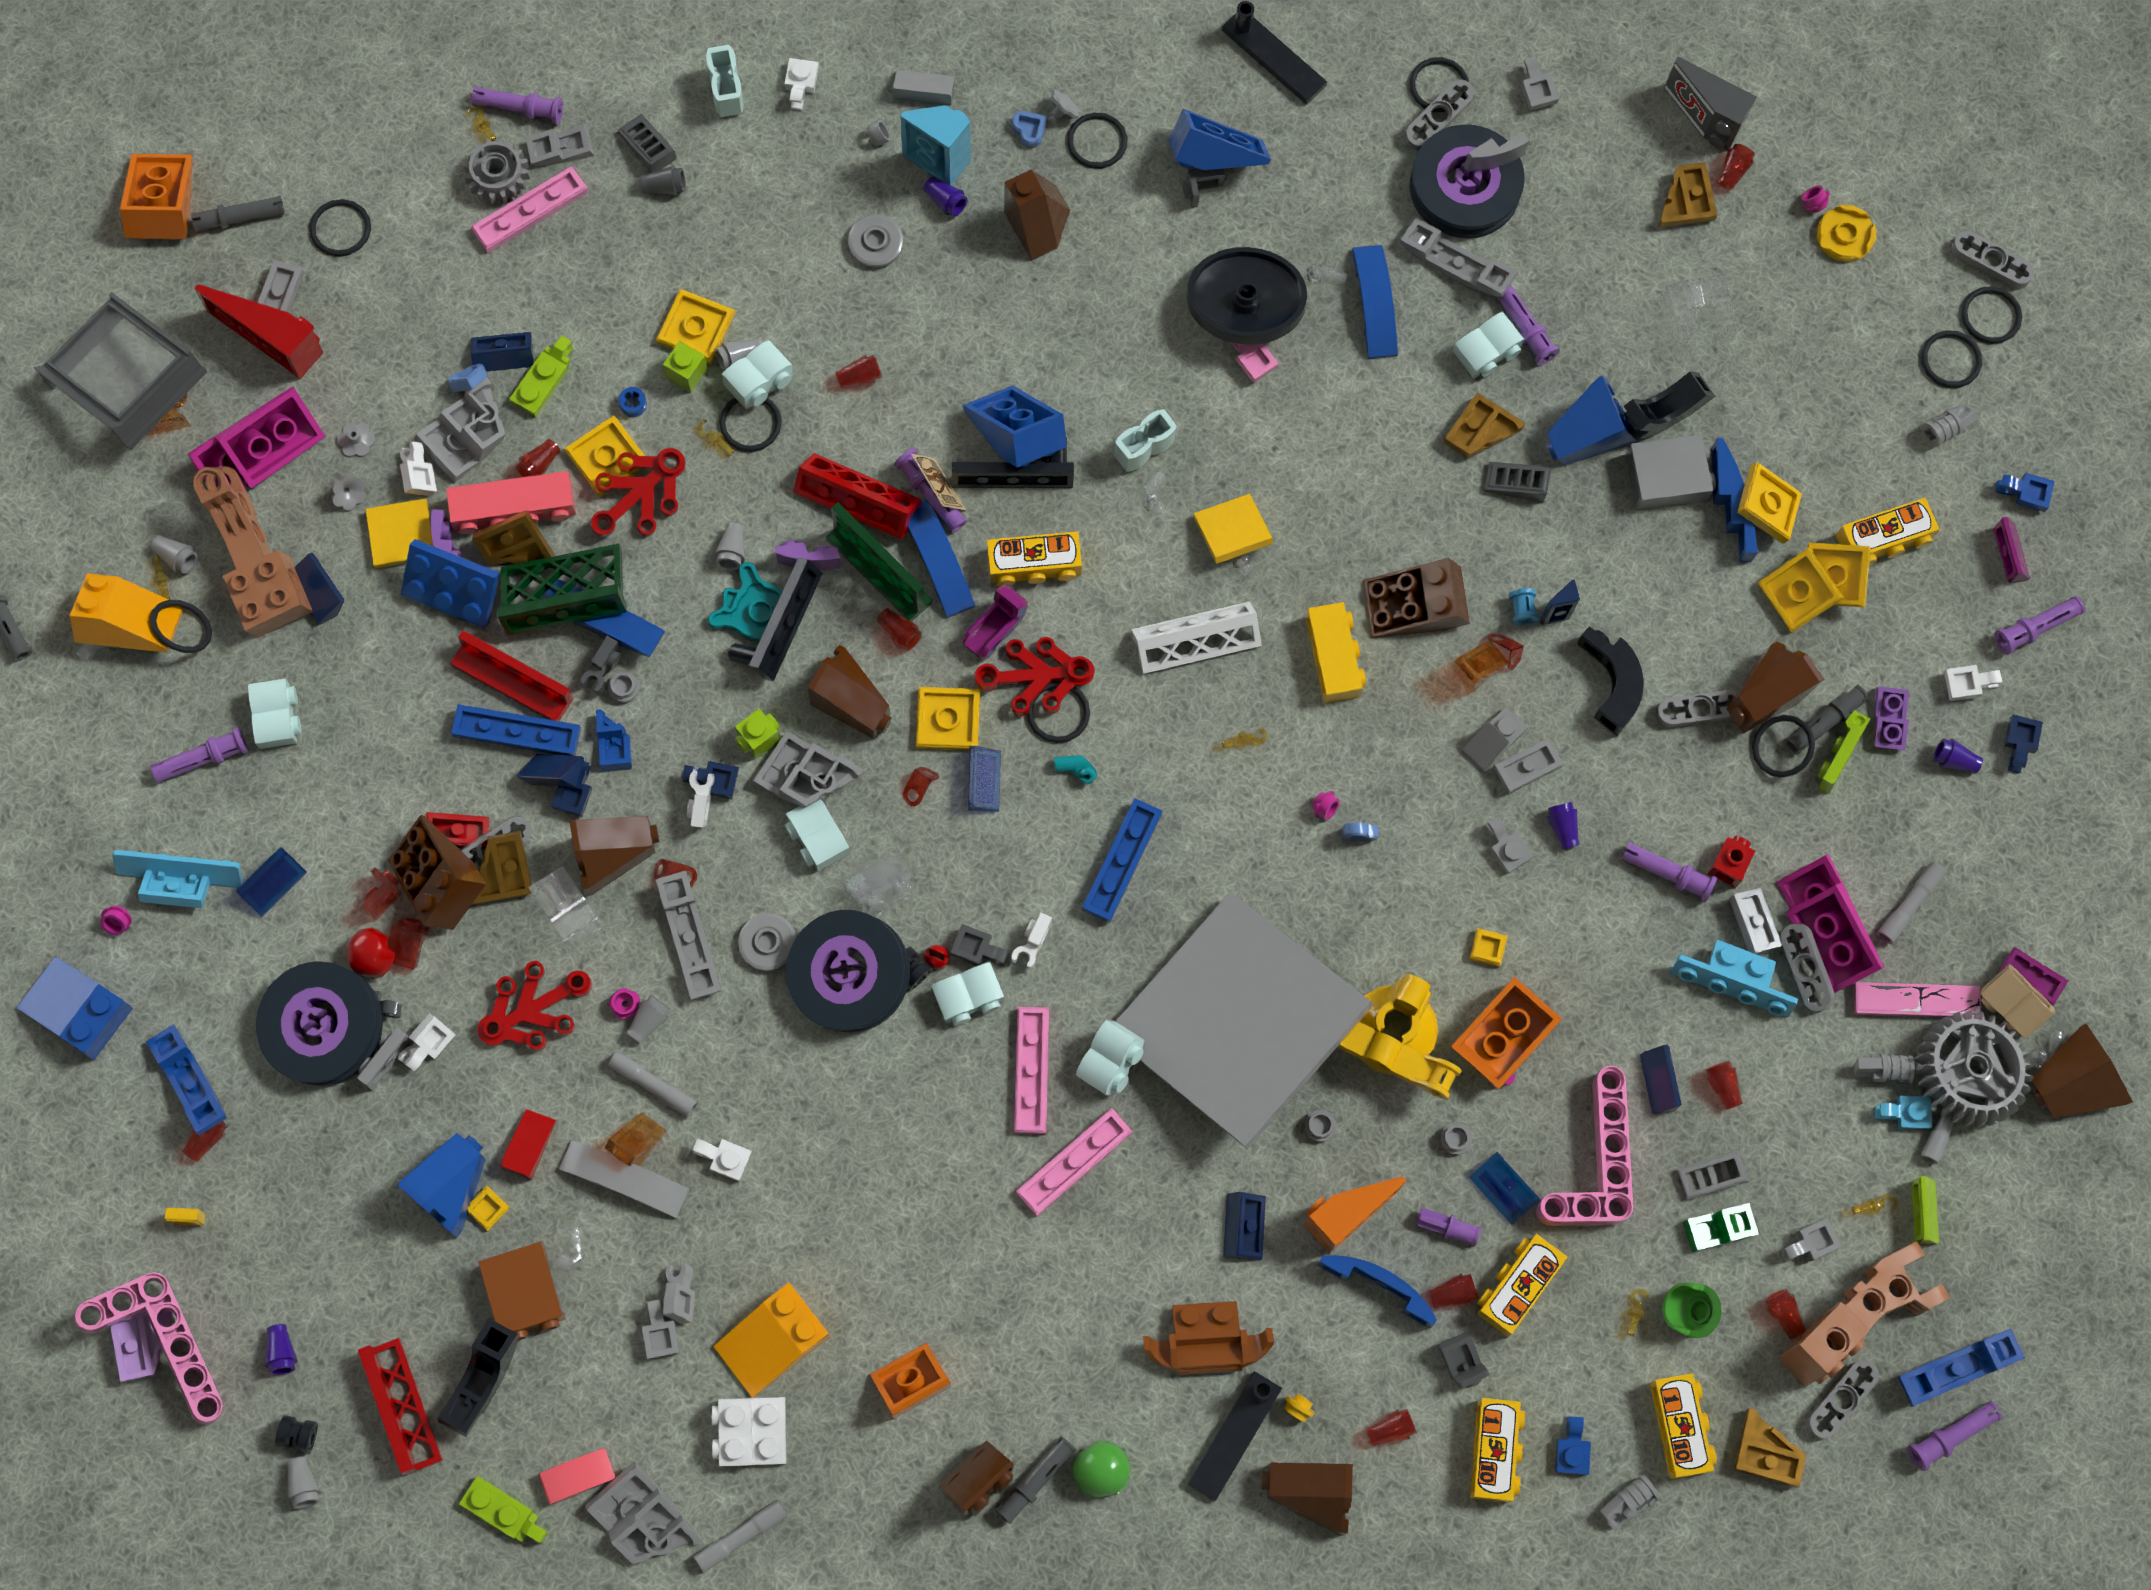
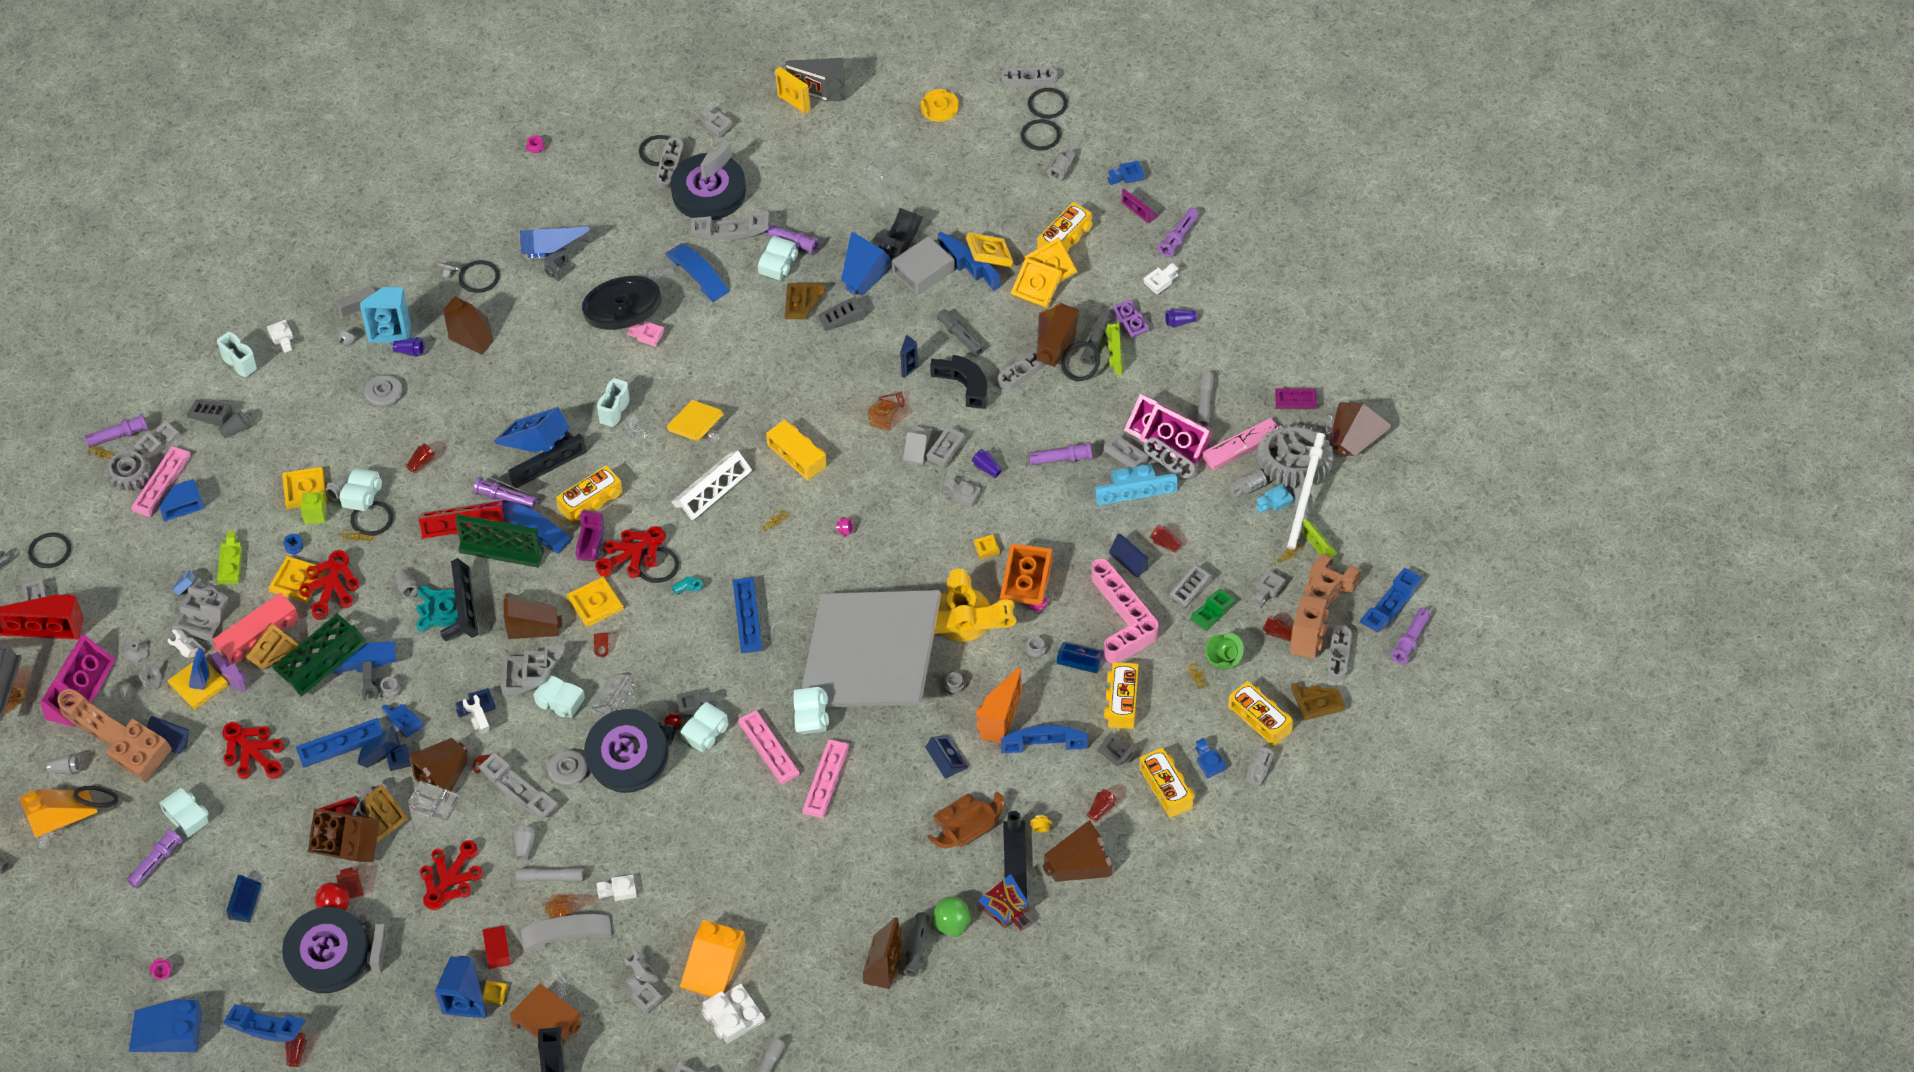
camera: 25 degrees left, 20 degrees down
(160, 578) = (64, 783): clear yellow hand -> none
(176, 878) = (182, 926): medium azure bracket -> none
(381, 898) = (317, 866): clear red bracket -> none
(402, 527) = (200, 671): none -> blue slope
(406, 669) = (251, 748): none -> red plant
(428, 1039) = (399, 925): white plate -> none
(449, 583) = (248, 686): blue plate -> none
(503, 351) = (196, 559): dark blue slope -> none
(511, 677) = (318, 718): red fence -> none
(534, 255) = (181, 501): none -> blue slope
(538, 459) = (256, 599): clear red cone -> none
(619, 997) = (503, 838): dark pink plate -> none
(757, 733) = (487, 665): lime brick -> none
(822, 557) = (443, 568): medium lavender slope -> none
(900, 630) = (535, 571): clear red cone -> none
(910, 1380) = (810, 936): orange slope -> none
(984, 779) = (637, 619): clear blue slope -> none
(1029, 127) = (434, 289): medium blue tile -> none
(1036, 934) = (722, 676): white plate -> none
(1179, 1500) = (1006, 904): none -> torso
(1273, 54) = (550, 182): black piece -> none
(1359, 832) = (873, 528): medium blue tile -> none
(1417, 600) = (825, 400): reddish brown slope -> none
(1448, 1226) = (1061, 691): medium lavender axle -> none
(1454, 1292) = (1089, 718): clear red cone -> none
(1524, 606) = (888, 372): dark azure bush -> none
(1653, 592) = (955, 327): none -> dark grey pin
(1664, 101) = (792, 90): none -> yellow tile
(1689, 197) = (839, 131): pearl gold wing -> none
(1725, 868) = (1092, 427): red brick -> none
(1736, 164) = (854, 102): clear red cone -> none
(1815, 199) = (910, 96): dark pink plate -> none
(1997, 1097) = (1315, 455): none -> white bar
(2016, 1001) = (1294, 411): tan brick -> none
(2024, 737) = (1209, 289): dark blue plate -> none

